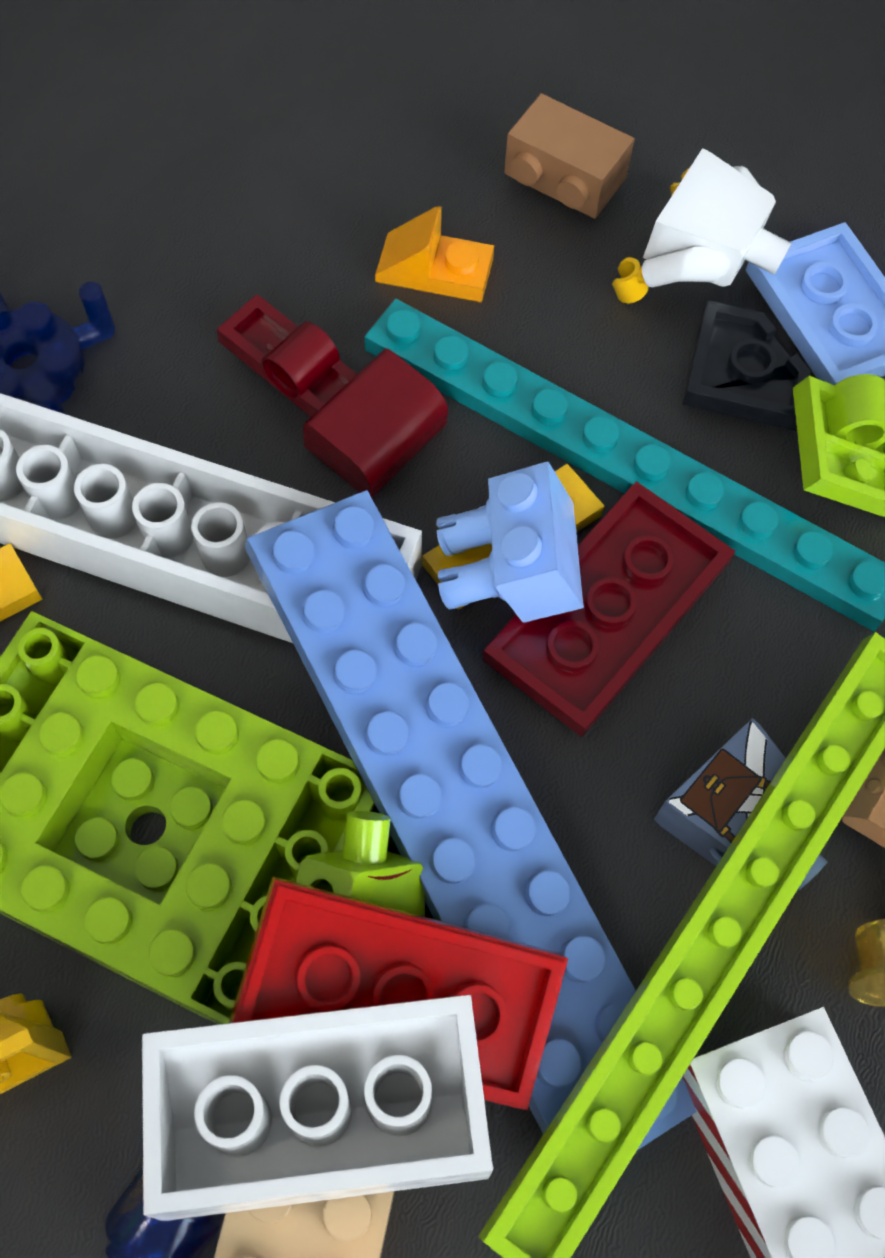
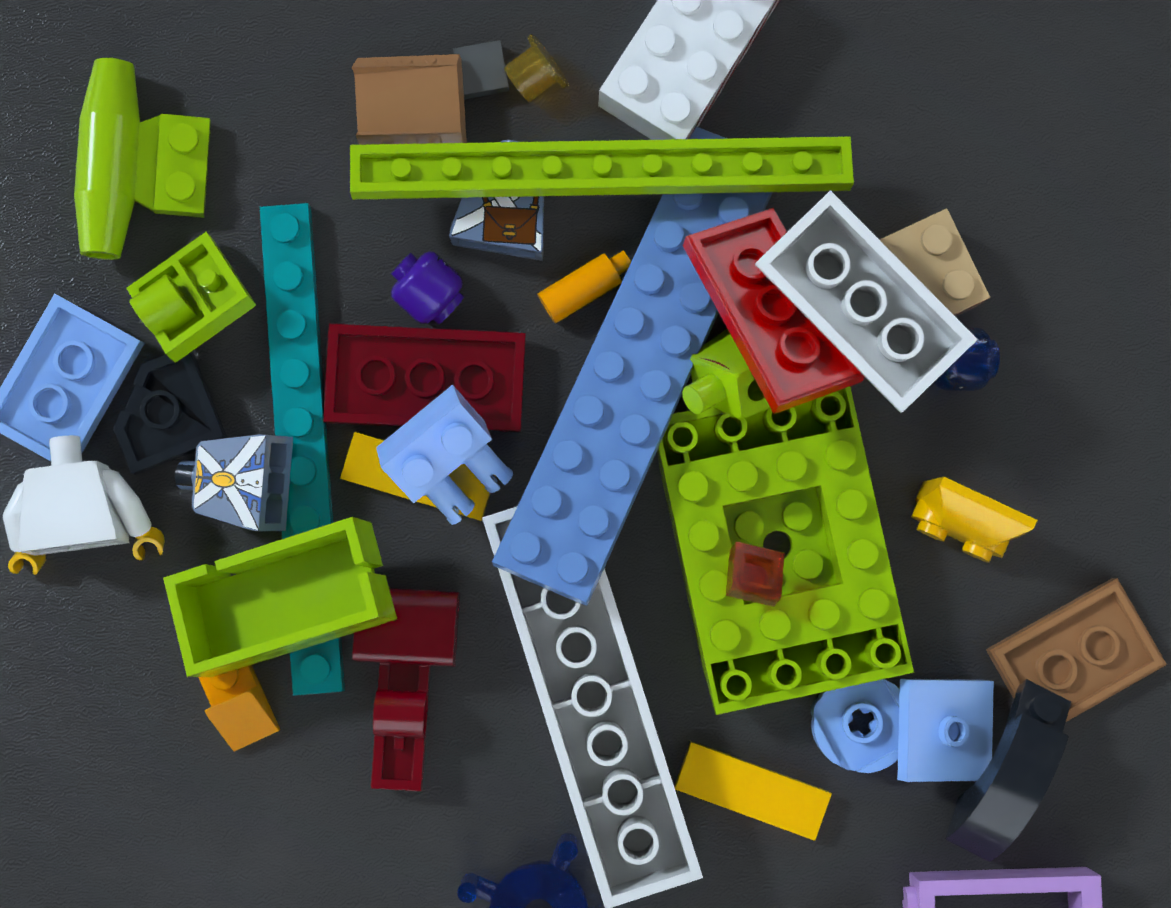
camera: 130 degrees left, 20 degrees up
(125, 741) = (755, 574): none -> clear red plate
(487, 315) = (280, 598): none -> lime piece
(568, 155) = (73, 664): medium nougat brick -> none
(594, 832) = (583, 285): none -> light orange cylinder
(627, 372) = (240, 480): none -> torso
(708, 668) = (426, 287): none -> dark purple head

